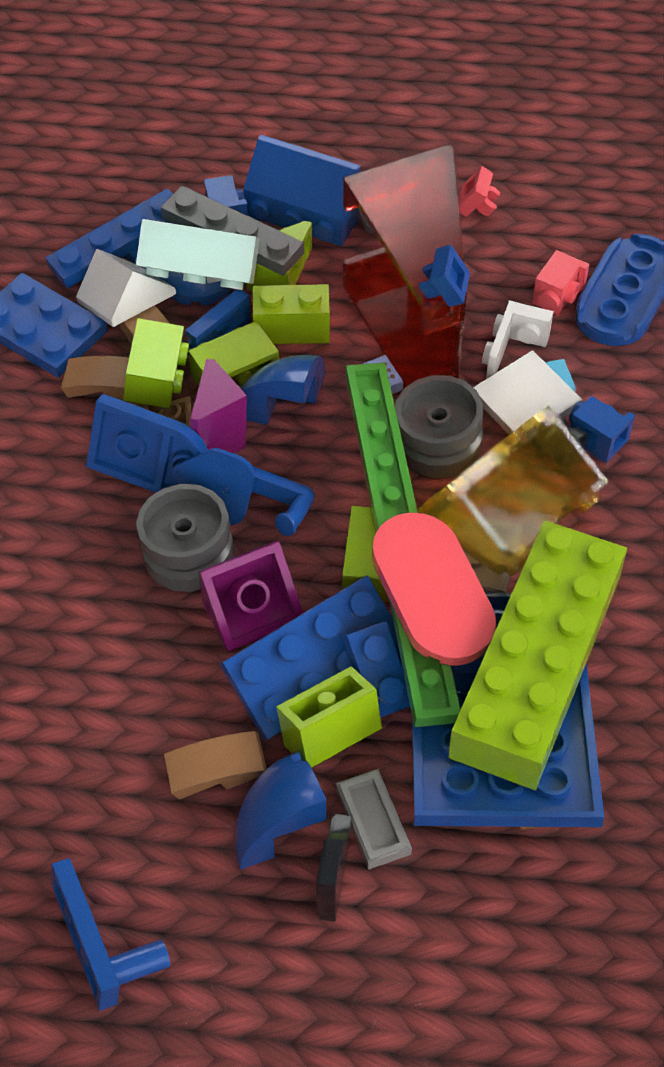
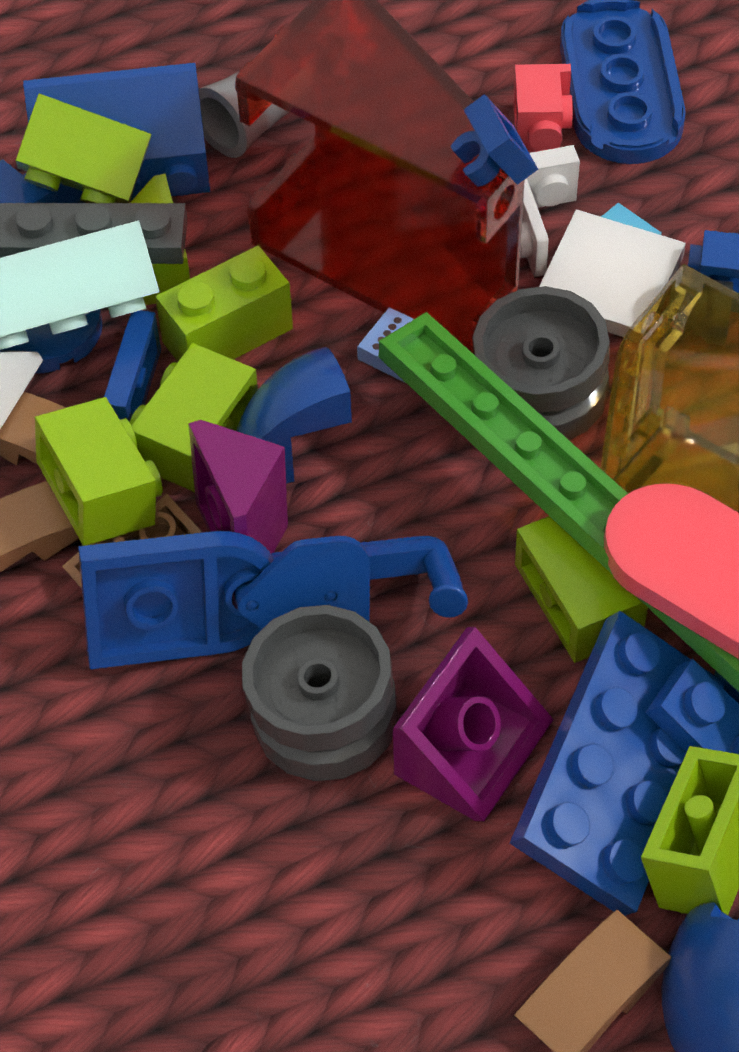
camera: 30 degrees left, 0 degrees up
(268, 188) = (81, 152): none -> lime brick

